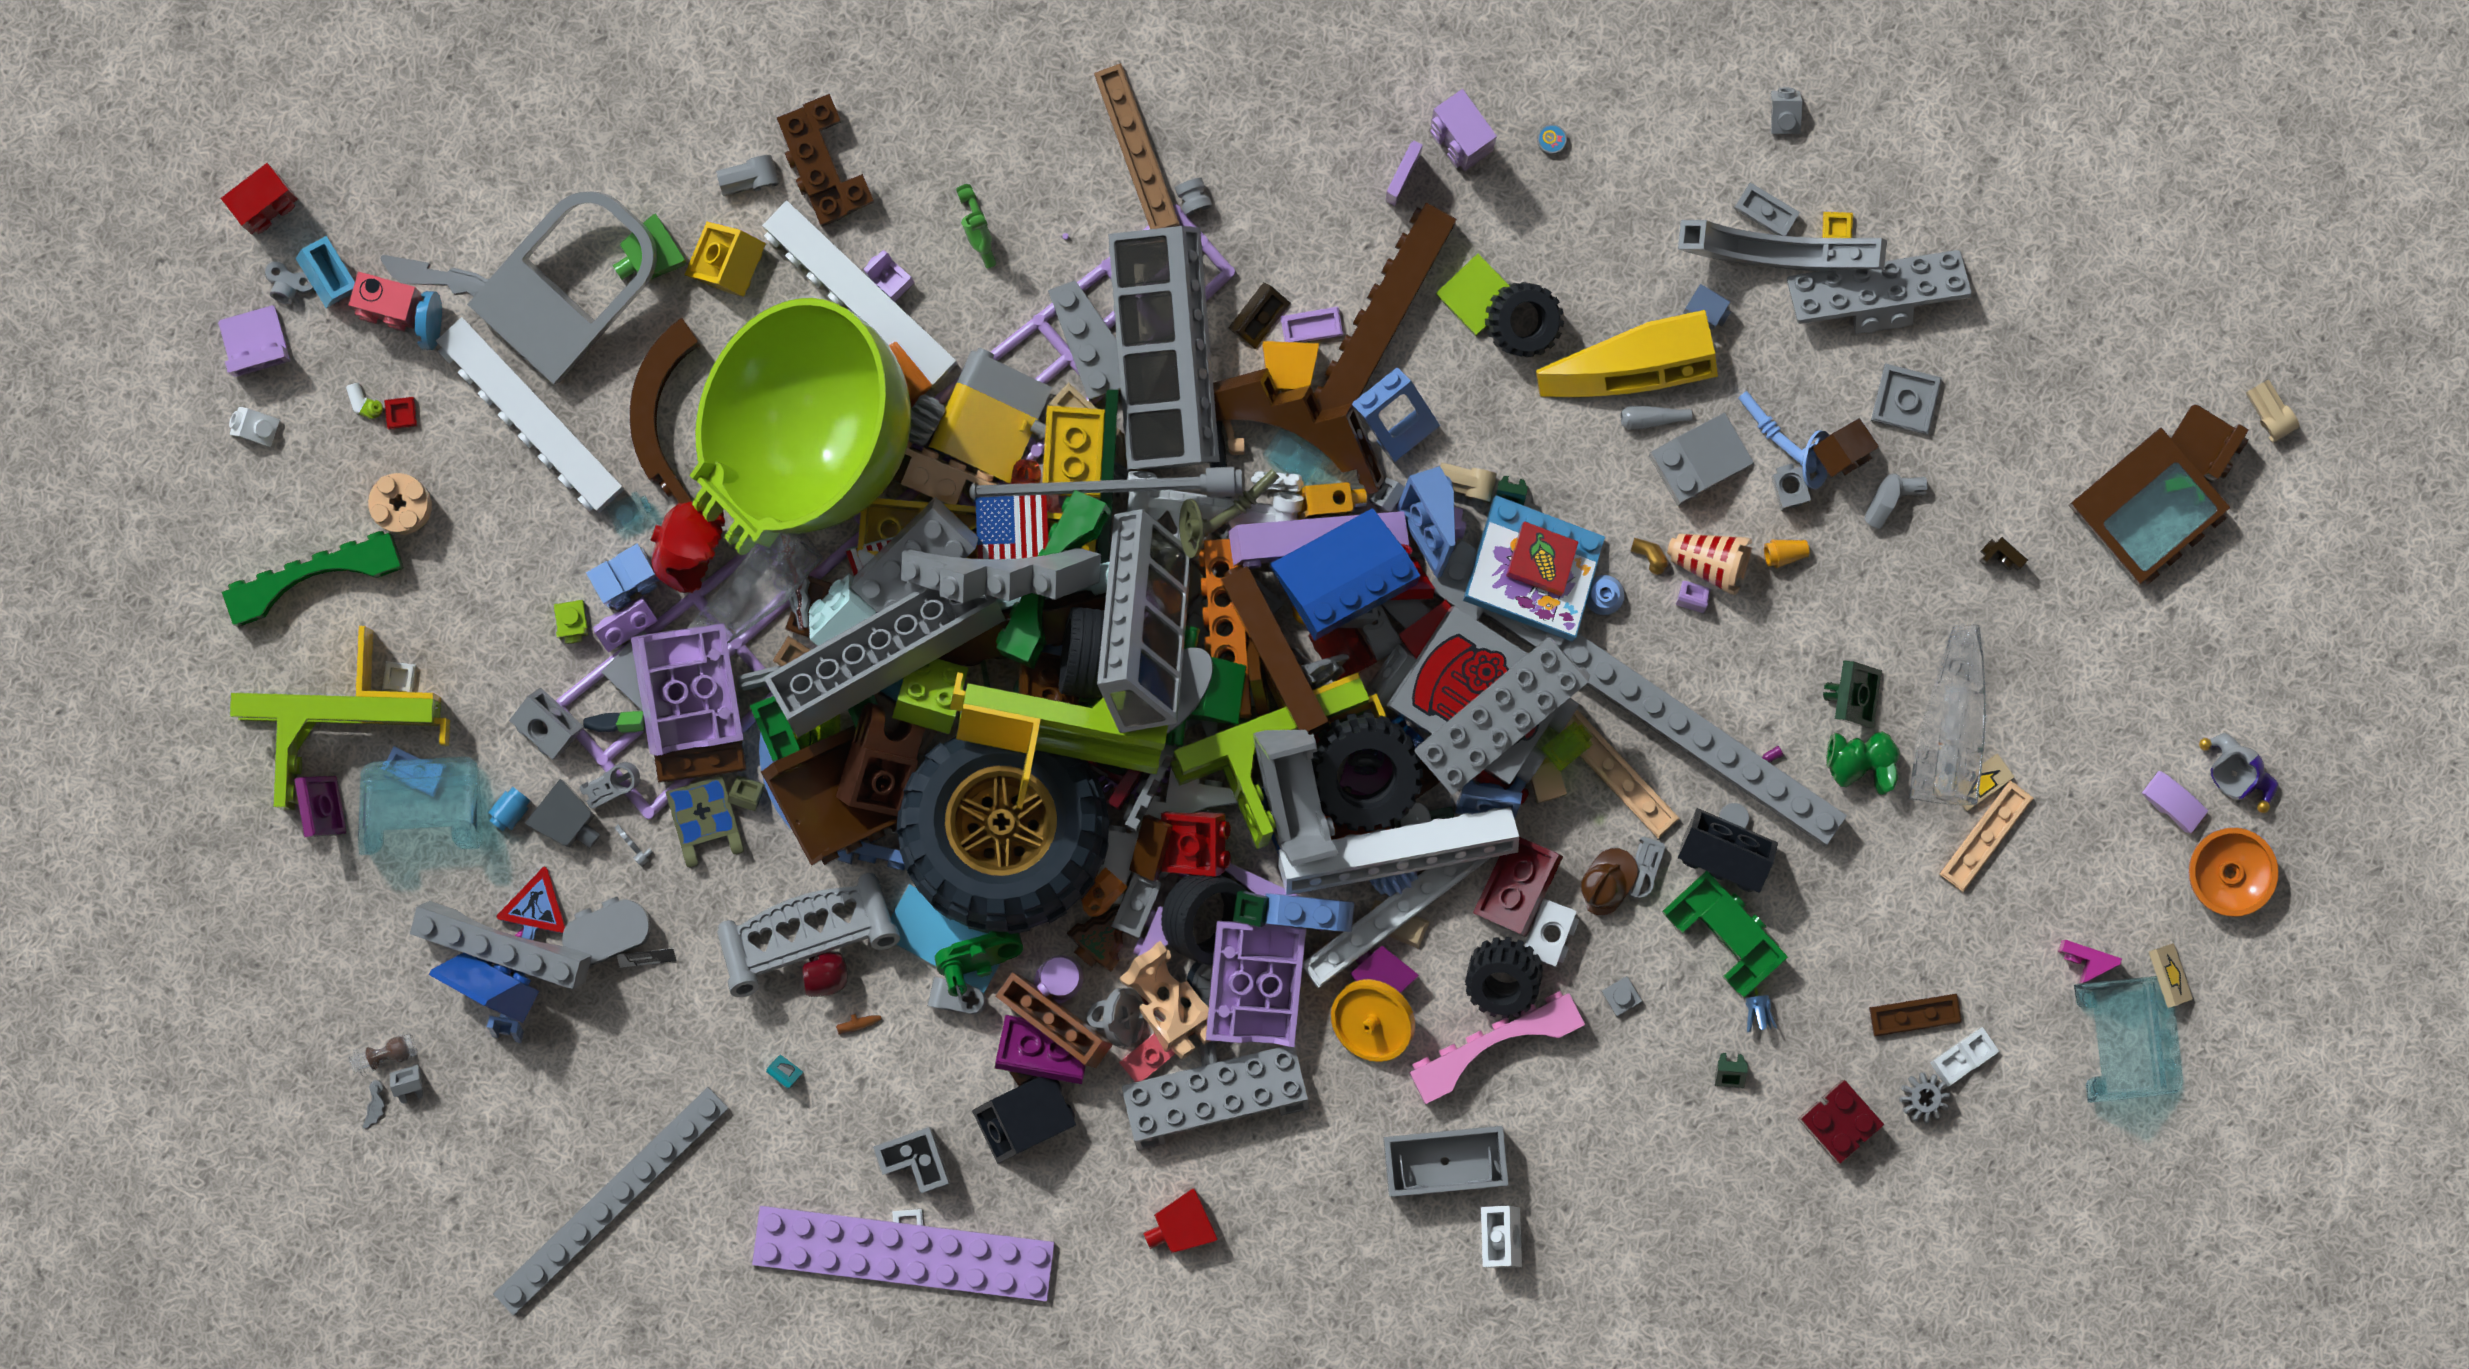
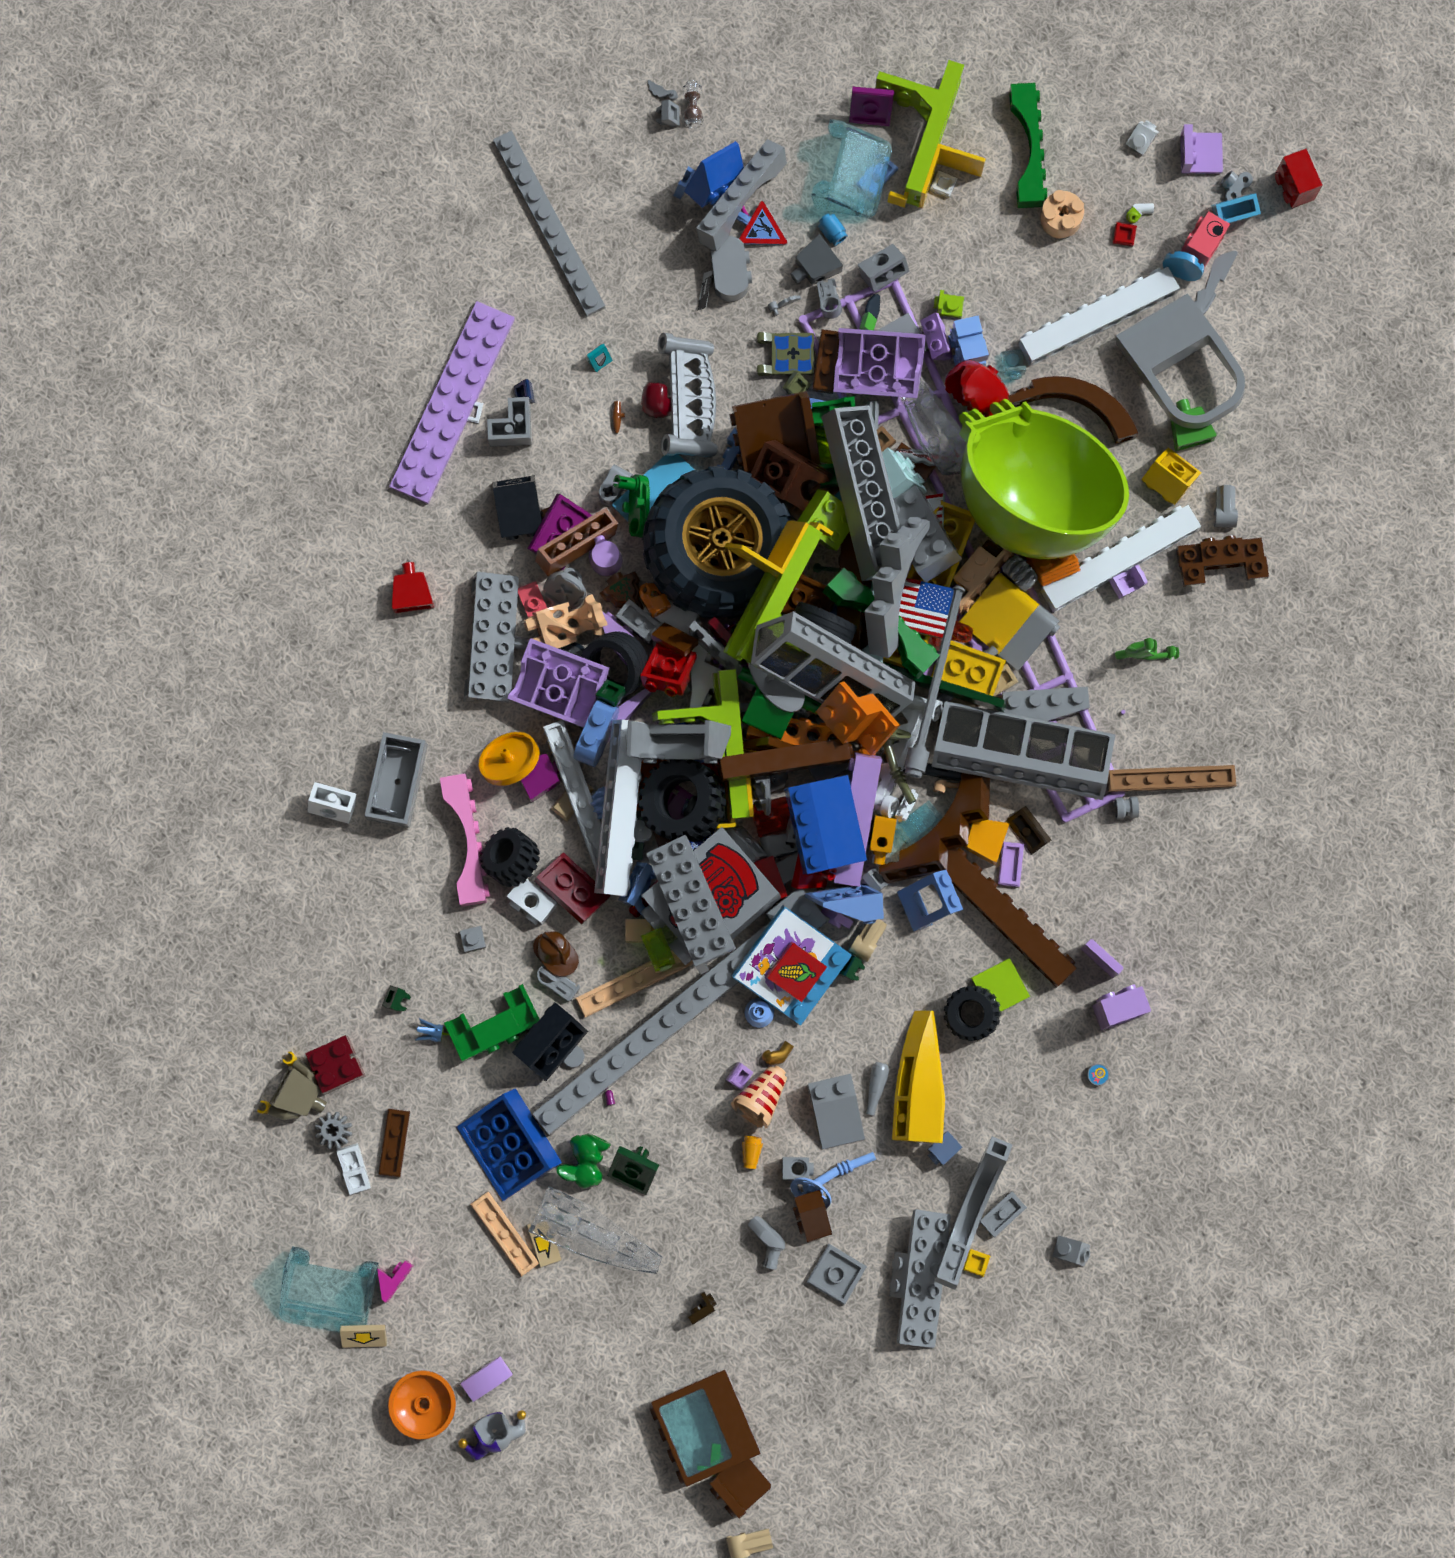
camera: 105 degrees right, 5 degrees down
(861, 1160) = (524, 389): none -> dark blue slope
(1194, 578) = (857, 718): none -> orange bracket
(1872, 864) = (509, 1144): none -> blue slope
(1893, 1162) = (295, 1093): none -> dark tan torso

